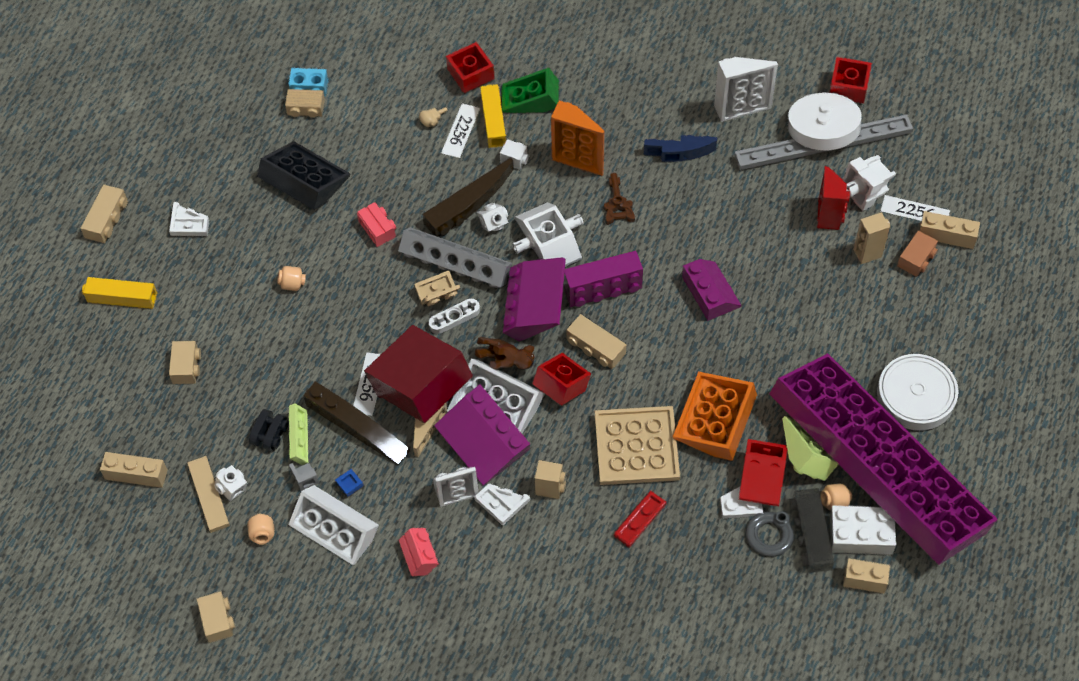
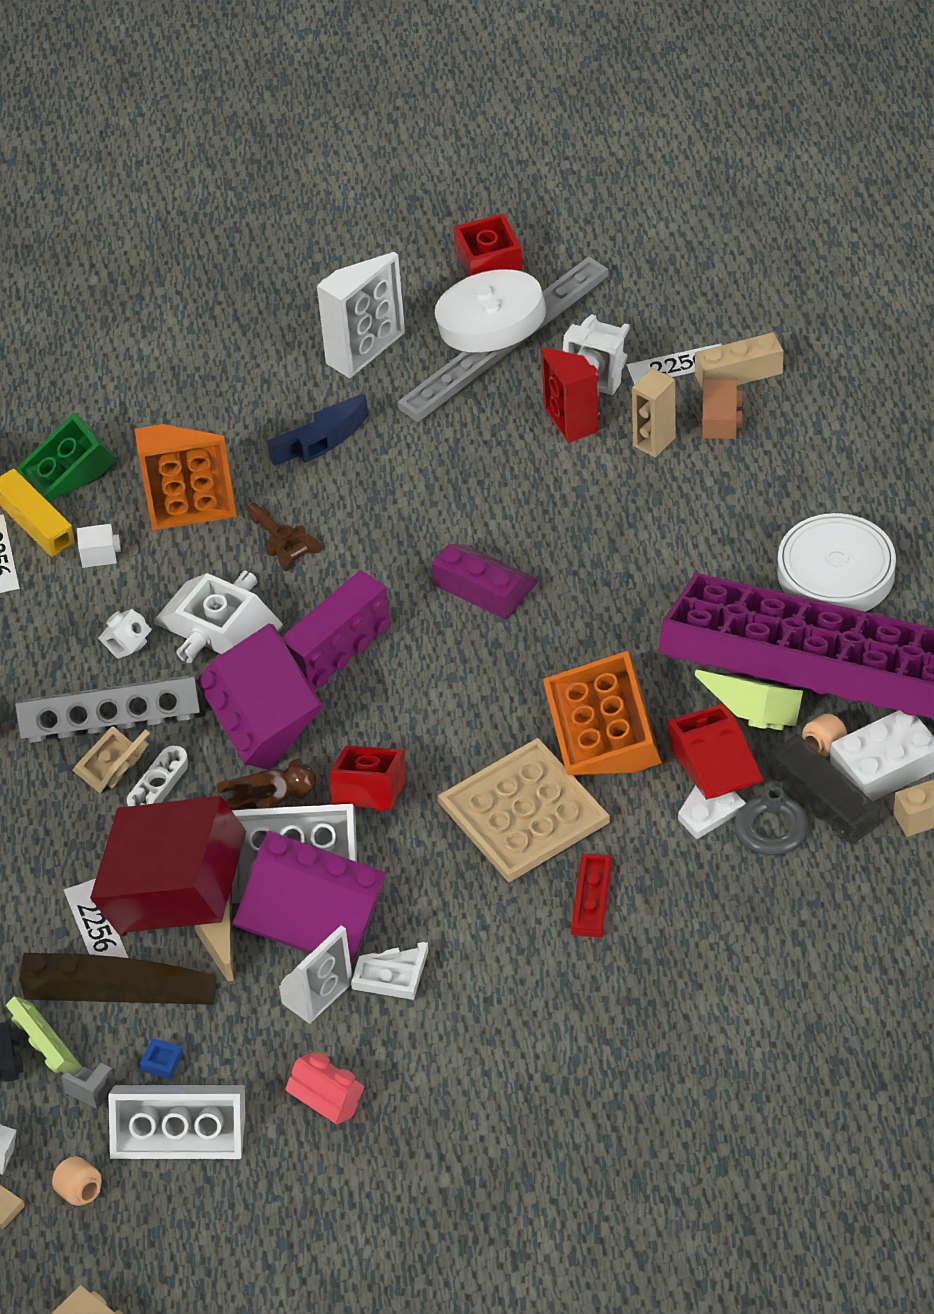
camera: 30 degrees left, 10 degrees down
(466, 201) = (71, 634): dark brown slope -> none
(549, 479) = (441, 904): tan brick -> none
(596, 342) = (378, 714): tan brick -> none

